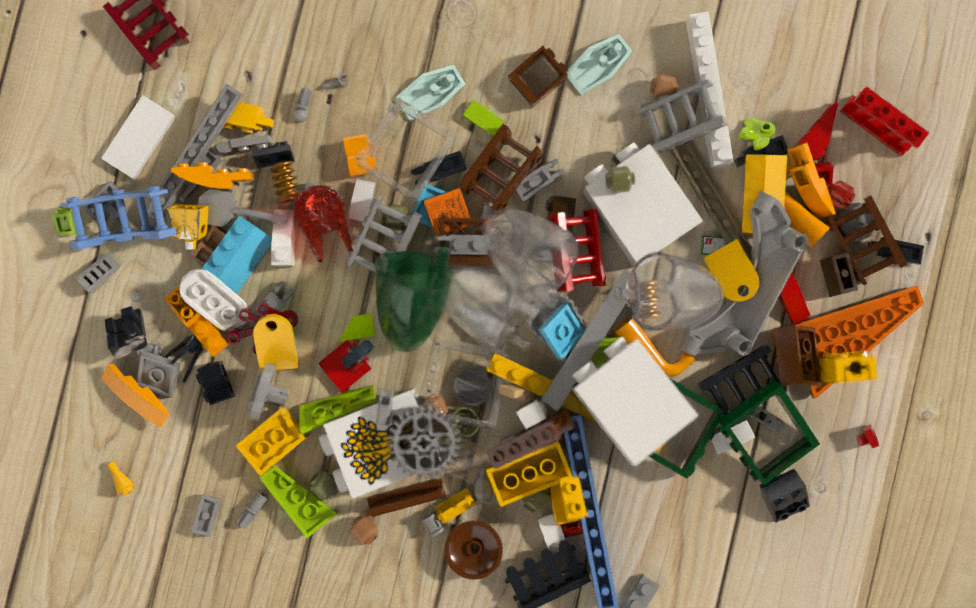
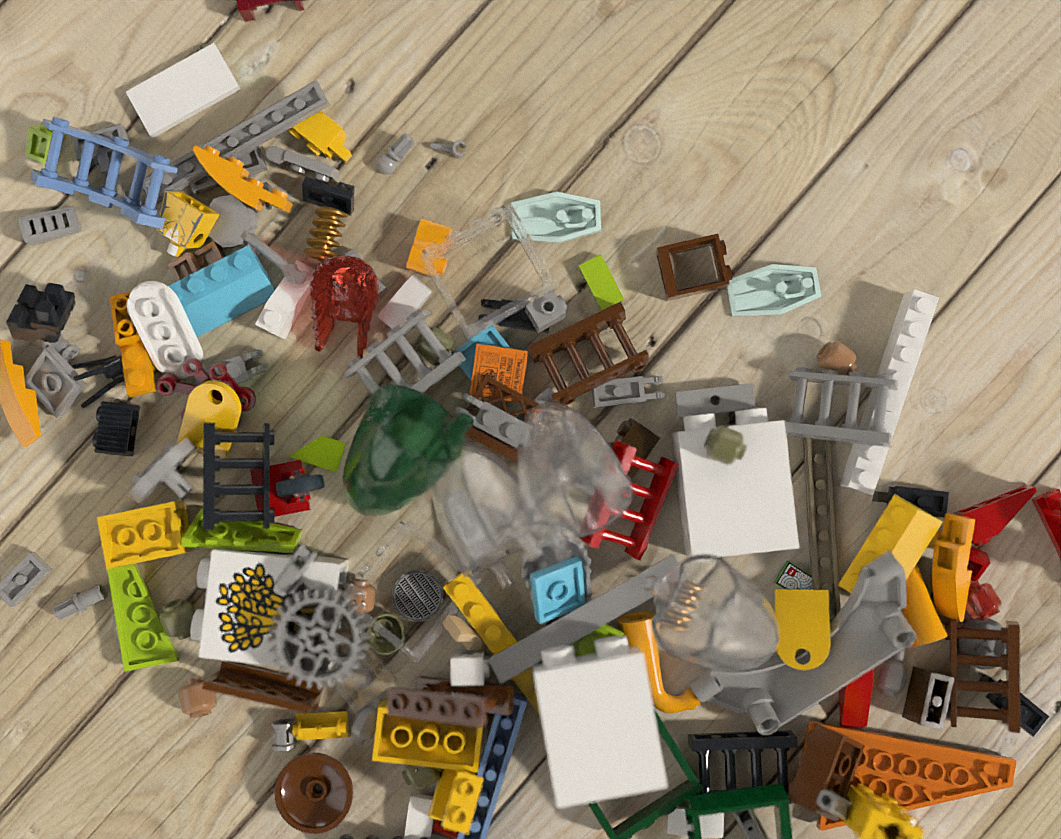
camera: 30 degrees right, 0 degrees up
(301, 386) = (214, 463): none -> black fence
(457, 155) = (546, 311): none -> light grey brick
(607, 149) = (729, 399): none -> light grey tile
(755, 131) = (917, 470): lime plate -> none
(810, 273) = (893, 676): none -> light grey plant
(812, 372) = (833, 803): none -> light grey bar

